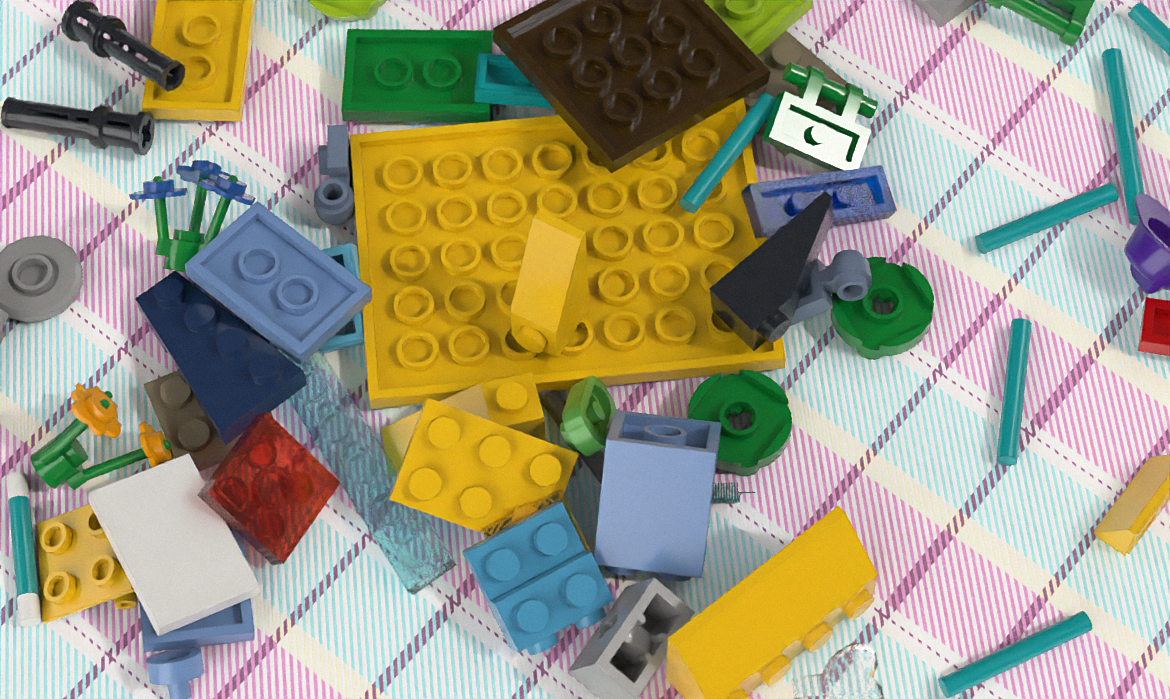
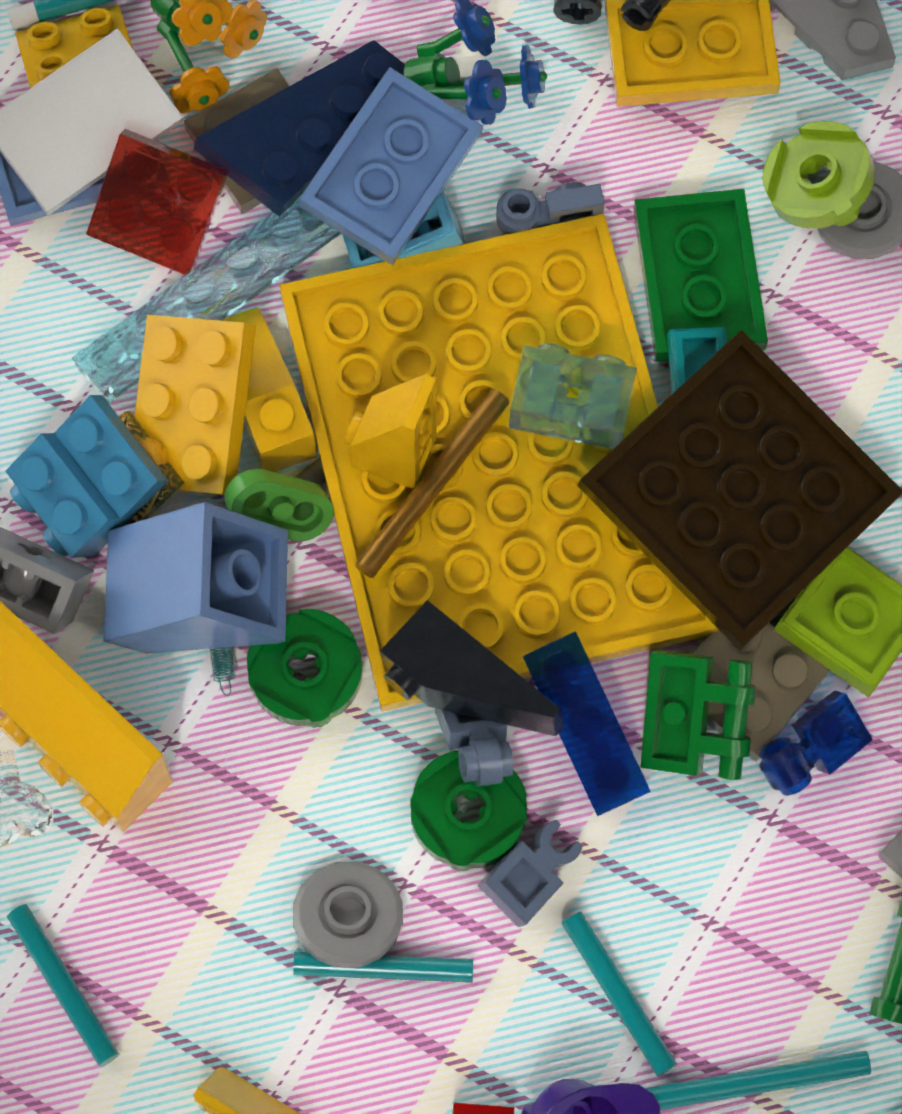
camera: 80 degrees right, 10 degrees up
(527, 166) = (542, 401): none -> clear light blue brick
(606, 307) = (432, 483): none -> pearl gold bar
(727, 154) = (633, 614): teal bar -> none
(846, 38) = (828, 738): none -> clear blue plate
(949, 269) = (525, 878): none -> sand blue plate
(968, 411) = (348, 914): none -> light grey wheel

